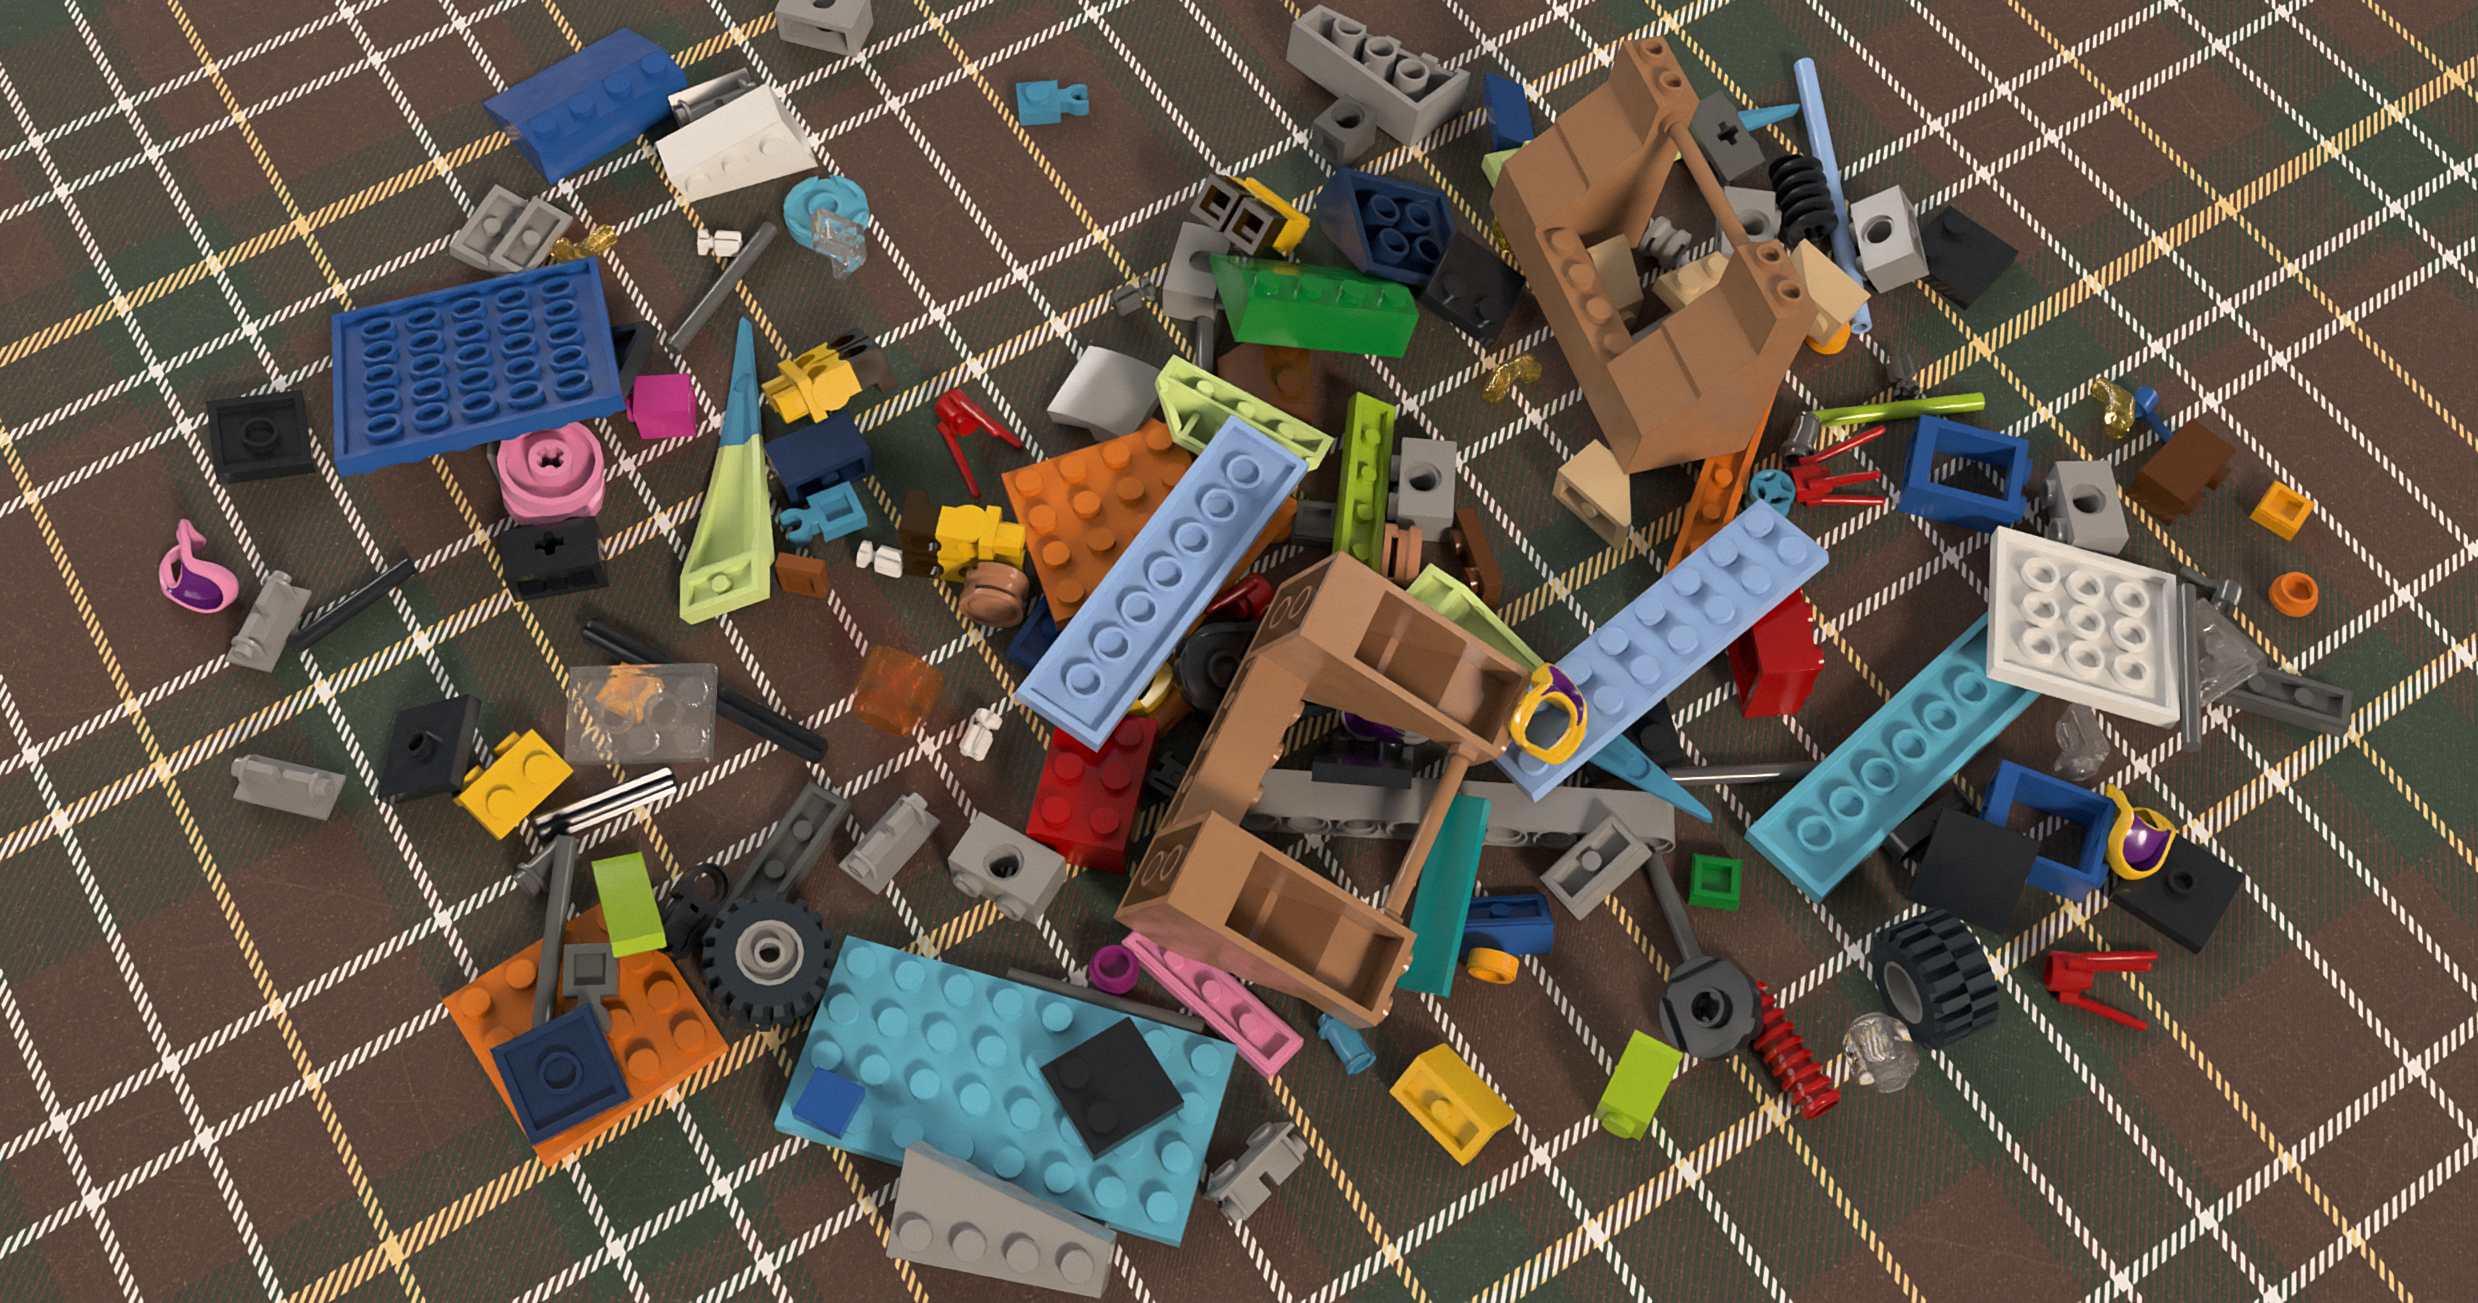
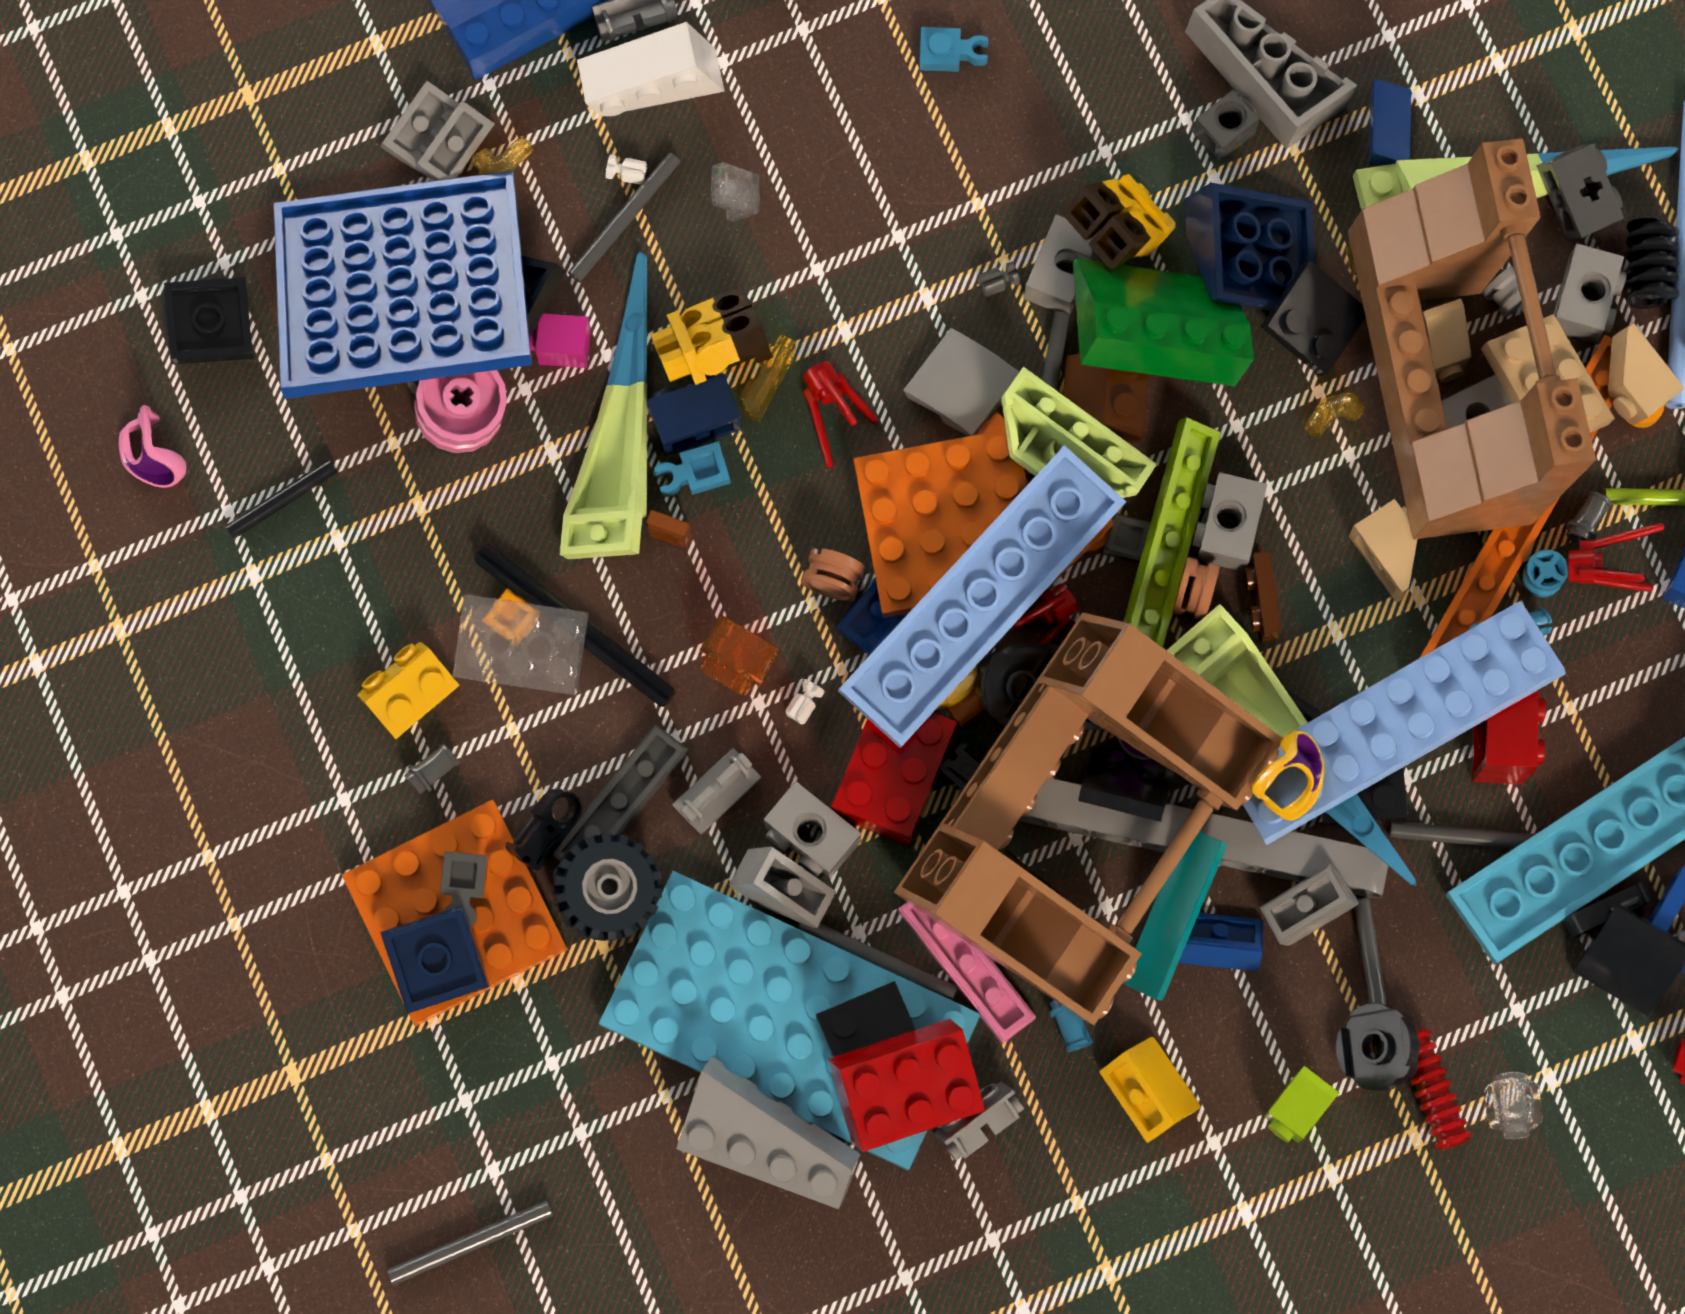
camera: 15 degrees right, 15 degrees up
(268, 623) = (210, 508): light grey hinge -> none
(286, 786) = (223, 663): light grey hinge -> none
(429, 749) = (342, 651): black plate -> none
(554, 558) = (476, 488): black brick -> none
(554, 931) = (435, 834): dark grey piece -> none
(605, 804) = (483, 719): axle -> none
(628, 905) = (497, 820): lime tile -> none
(829, 1103) = (644, 1016): blue tile -> none
(832, 194) = (726, 138): medium azure tile -> none
(885, 560) = (742, 521): white piece -> none
(901, 406) = (759, 392): none -> clear yellow plate
(948, 540) = (809, 521): yellow hips -> none
(979, 932) = (782, 886): none -> light grey slope
(1114, 969) = (889, 931): magenta plate -> none
(1162, 1130) = (906, 1085): none -> red brick
(1492, 965) = (1204, 979): light orange tile -> none
(1714, 882) = (1410, 931): green tile -> none
(1935, 978) = (1570, 1054): black wheel -> none

